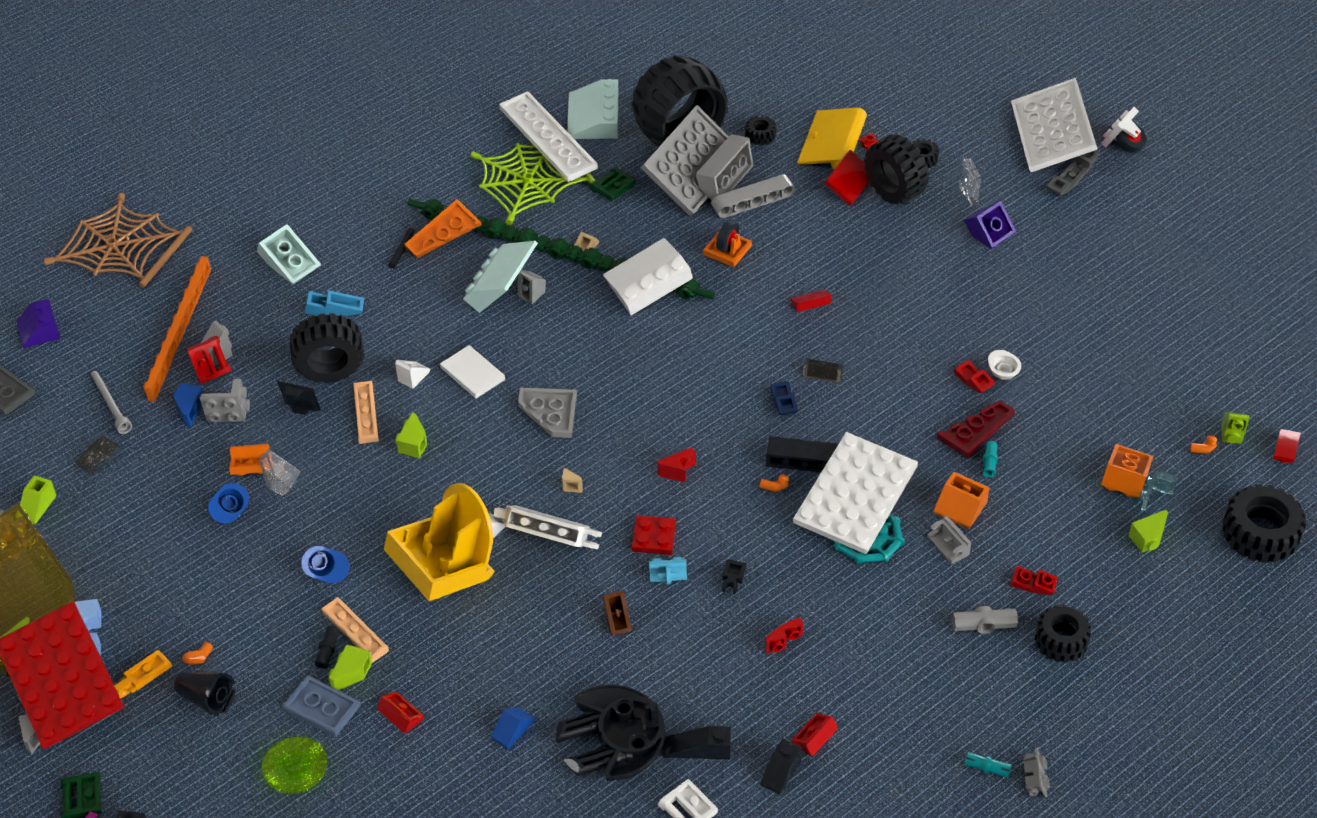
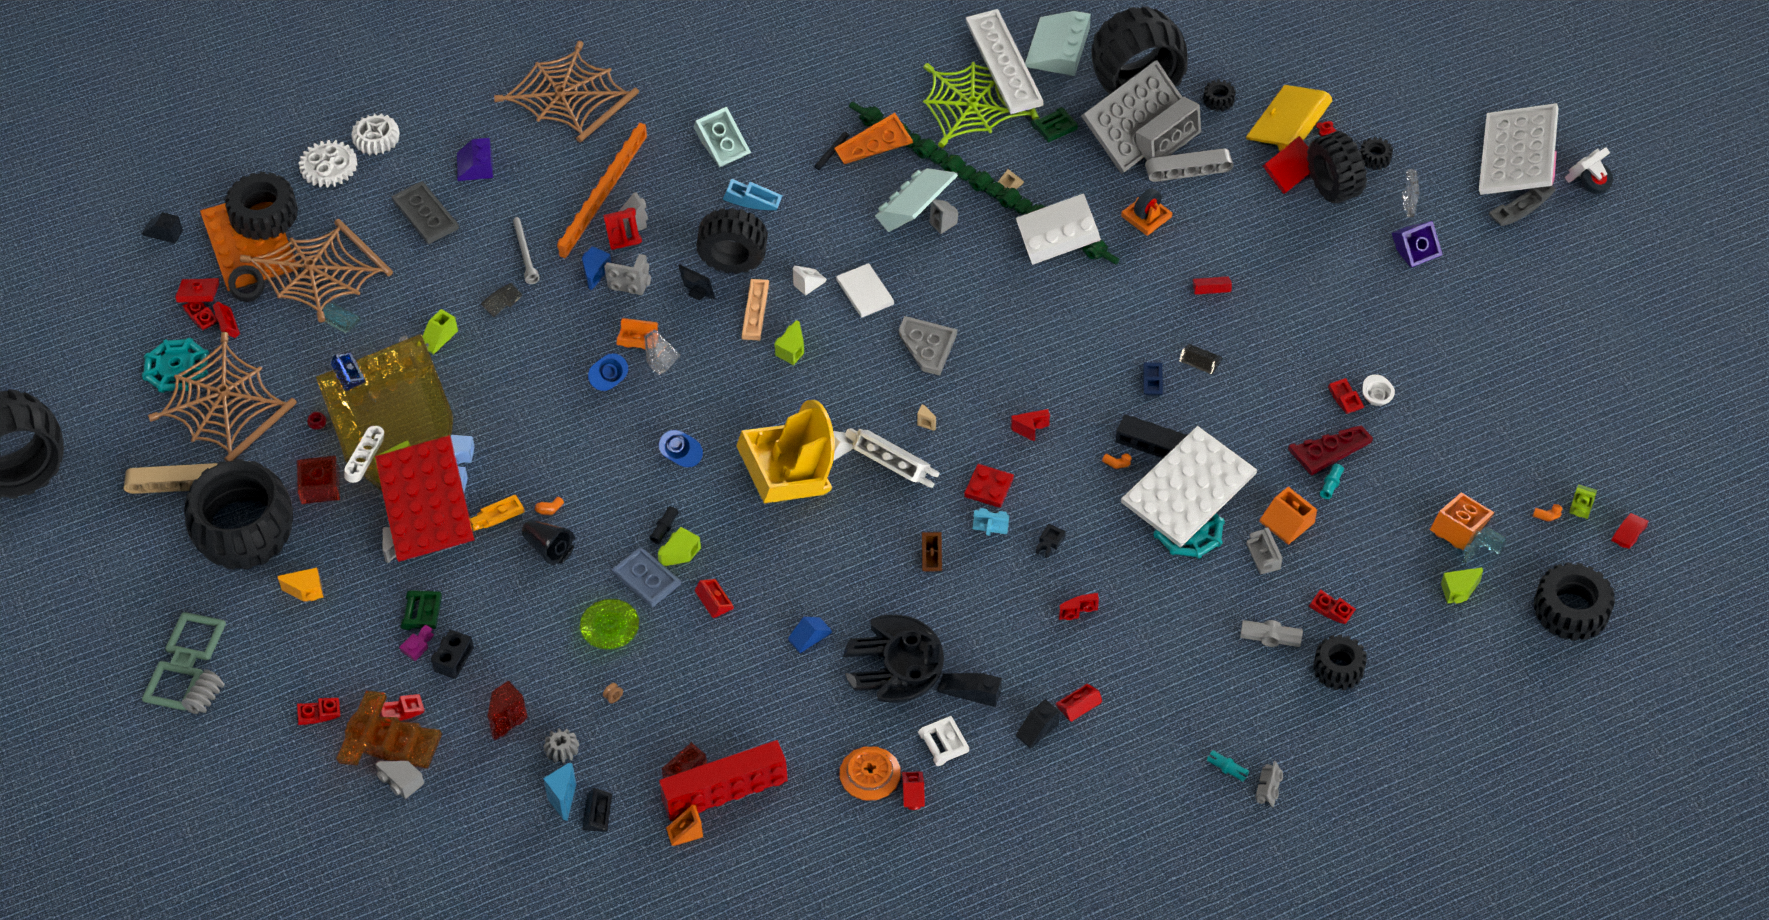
camera: 15 degrees right, 5 degrees up
(354, 628) = (693, 513): light nougat tile -> none

